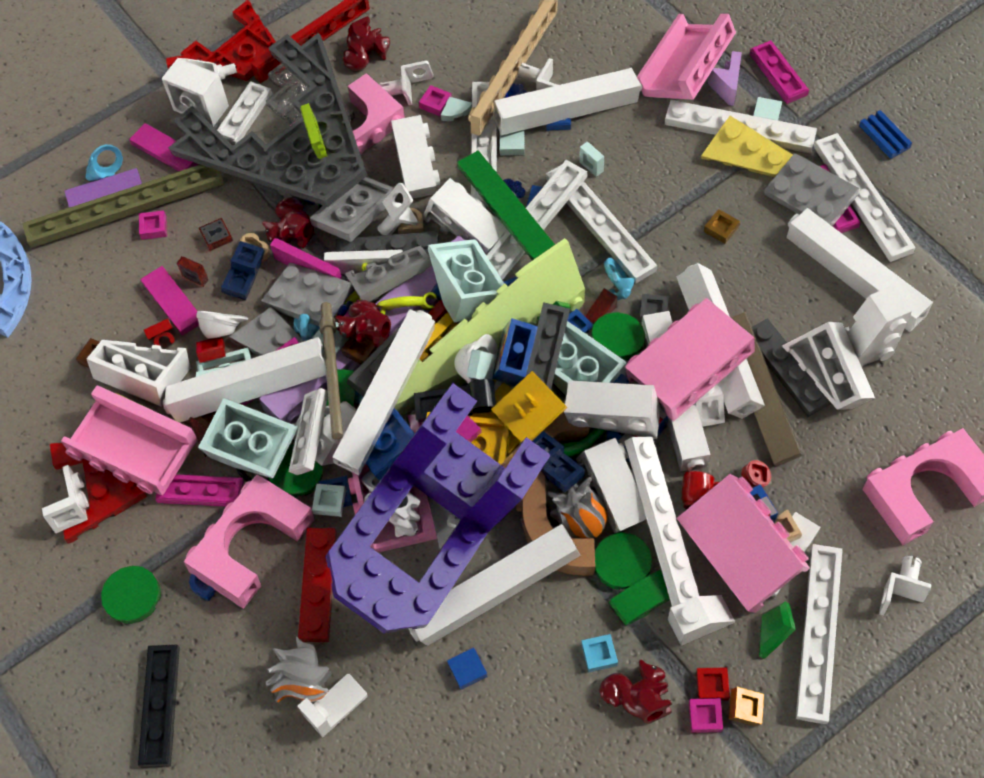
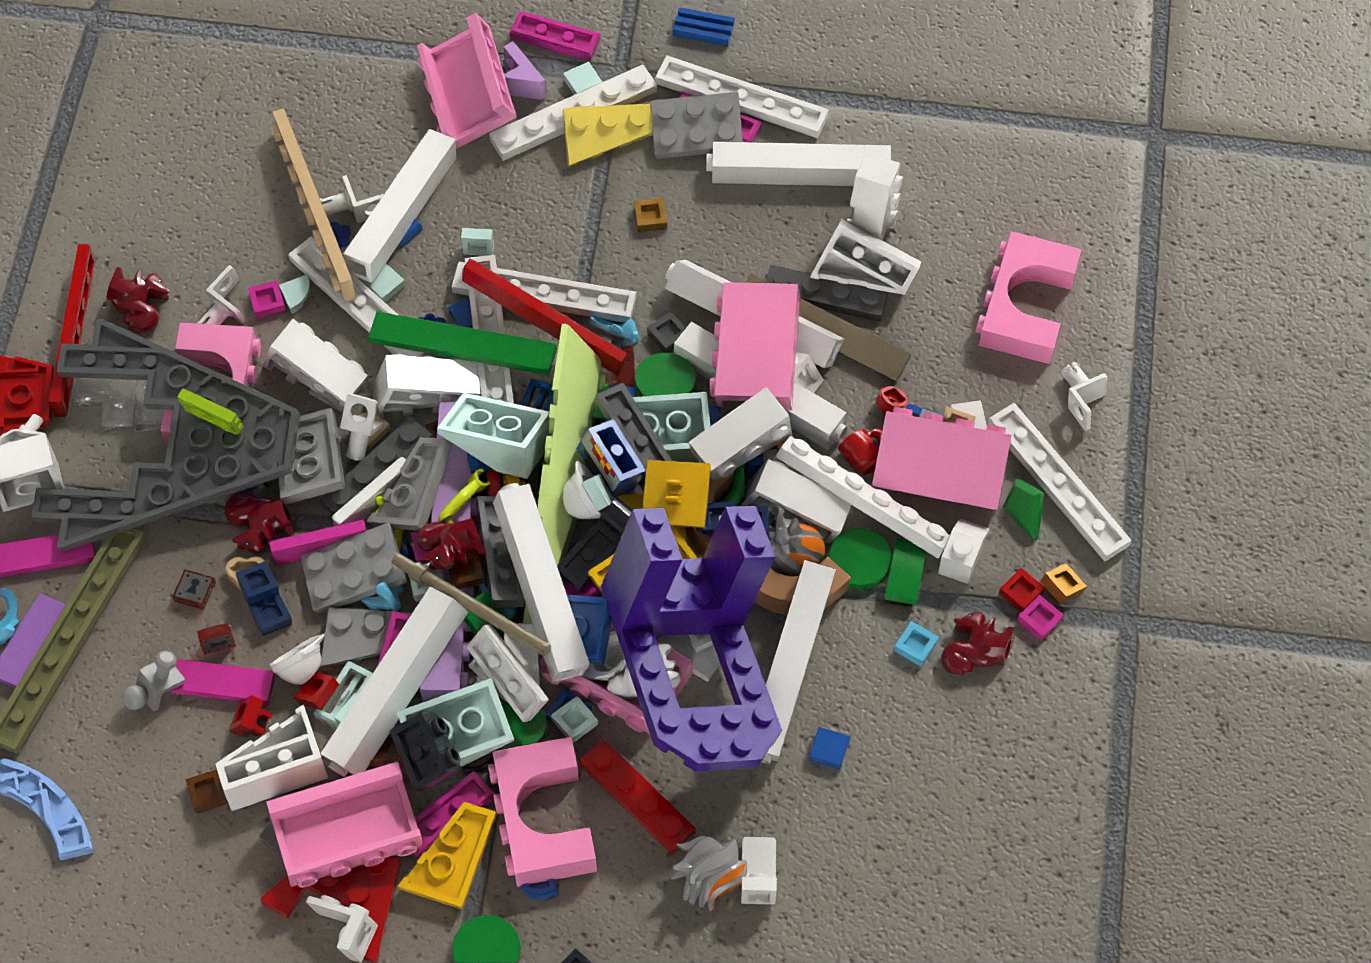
camera: 50 degrees left, 0 degrees up
(138, 266) = (153, 682): none -> light grey piece
(152, 225) = (119, 632): dark pink tile -> none
(170, 520) = (453, 859): none -> yellow wing
(212, 436) = (426, 750): none -> black bracket
(244, 112) = (84, 453): white tile -> none
(574, 232) = (538, 312): none -> red tile

